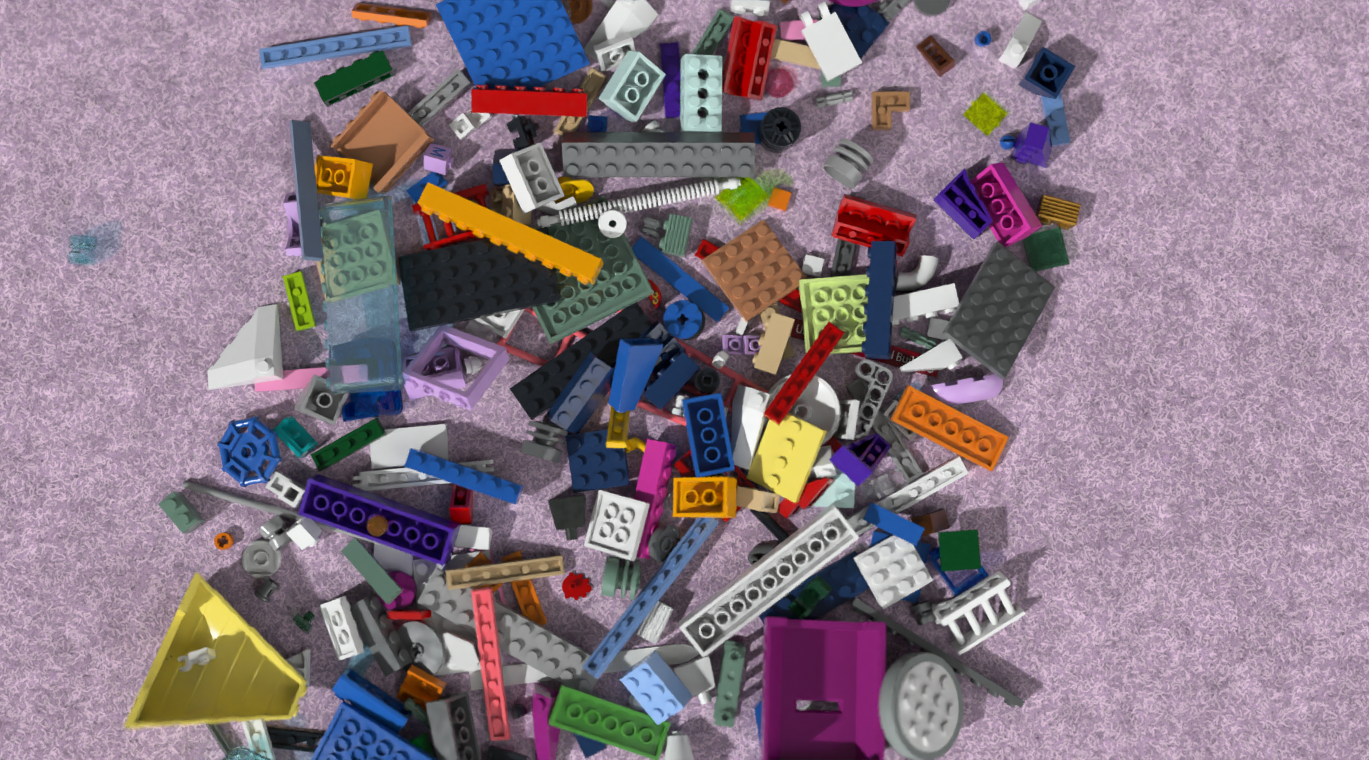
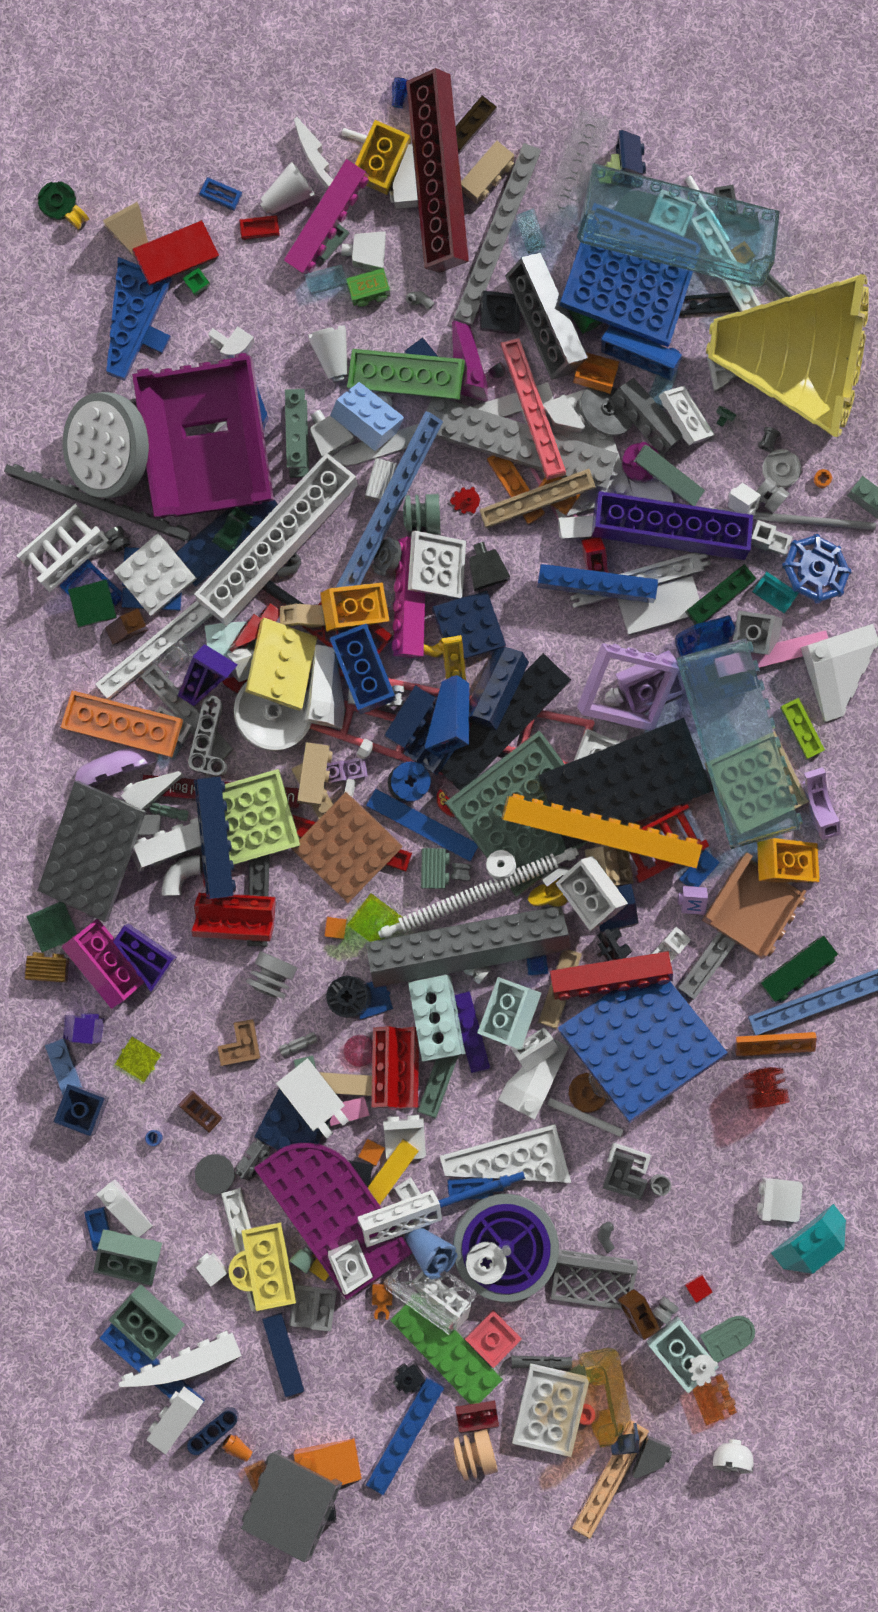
camera: 165 degrees right, 0 degrees up
(199, 657) = (818, 361): white plate -> none
(306, 191) = (819, 838): sand blue tile -> none
(377, 525) = (671, 516): clear orange tile -> none
(409, 614) = (622, 440): red tile -> none
(417, 711) = (595, 351): sand green axle -> none
(544, 441) = (525, 632): dark grey wheel -> none
(707, 381) = (374, 723): black wheel -> none
(803, 373) = (278, 747): red tile -> none
(812, 266) = (289, 865): white tile -> none
(848, 419) = (225, 712): white tile -> none
(893, 523) = (162, 617): blue tile -> none
(1008, 145) = (108, 1029): blue hinge -> none
(1020, 40) = (113, 1145): white slope -> none

